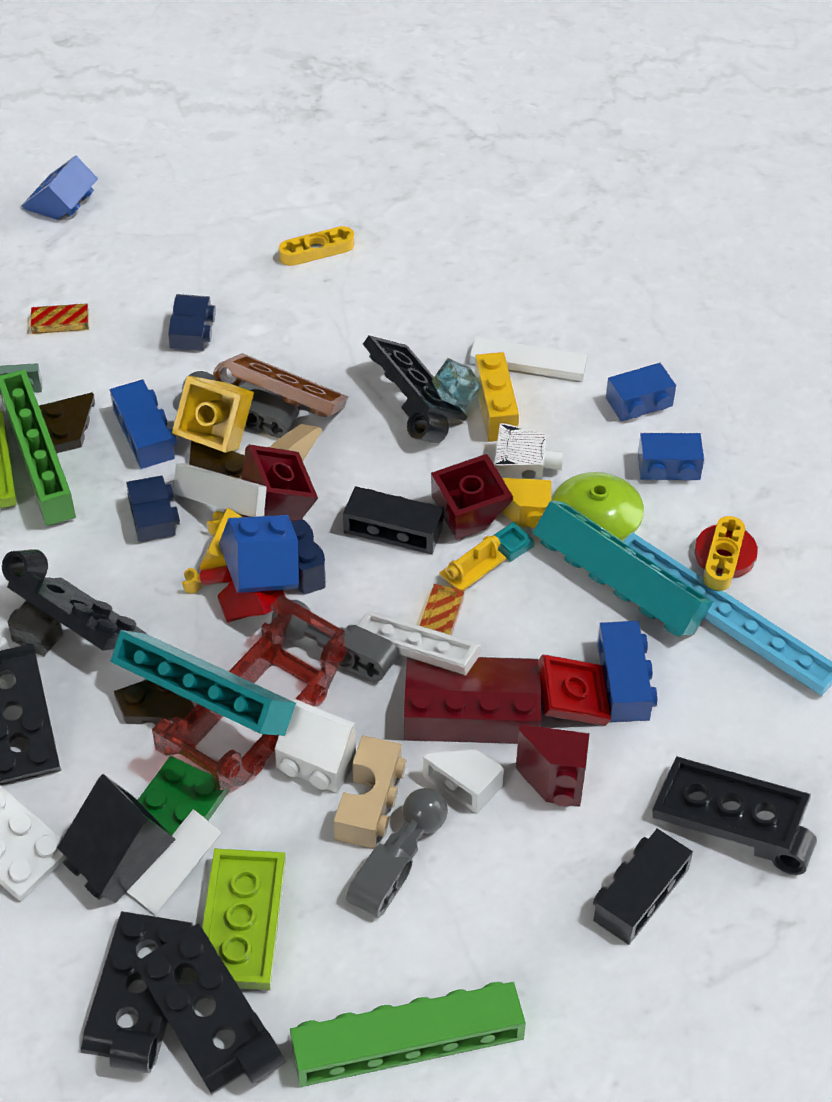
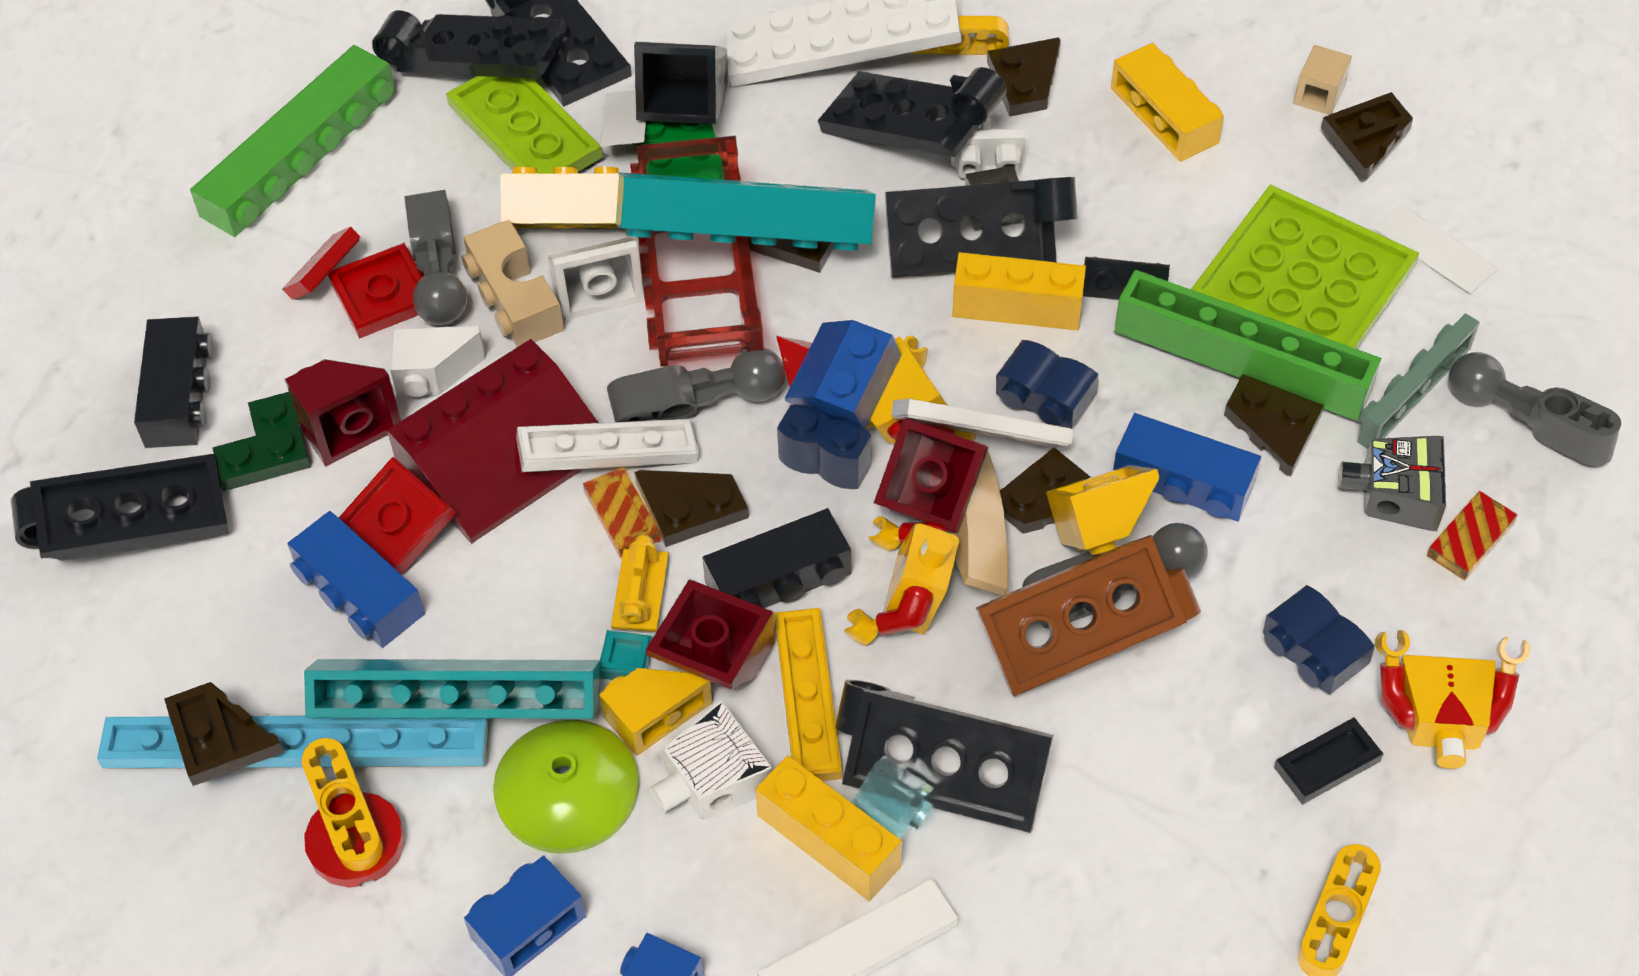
camera: 140 degrees right, 5 degrees up
(24, 526) = (1110, 276): none -> black hinge
(56, 350) = (1401, 480): none -> torso
(99, 562) = (1018, 291): none -> yellow brick
(169, 266) = (1446, 698): none -> torso
(247, 291) = (1328, 760): none -> black tile
(282, 817) = (560, 198): none -> brick
(338, 455) = (917, 580): none -> torso
(399, 591) = (690, 502): none -> dark brown wing
(450, 866) = (377, 289): none -> red tile
(454, 449) = (808, 692): none -> yellow tile
(475, 906) = (321, 263): none -> red tile
(611, 798) = (271, 453): none -> dark green plate
(768, 622) = (216, 734): none -> dark brown wing

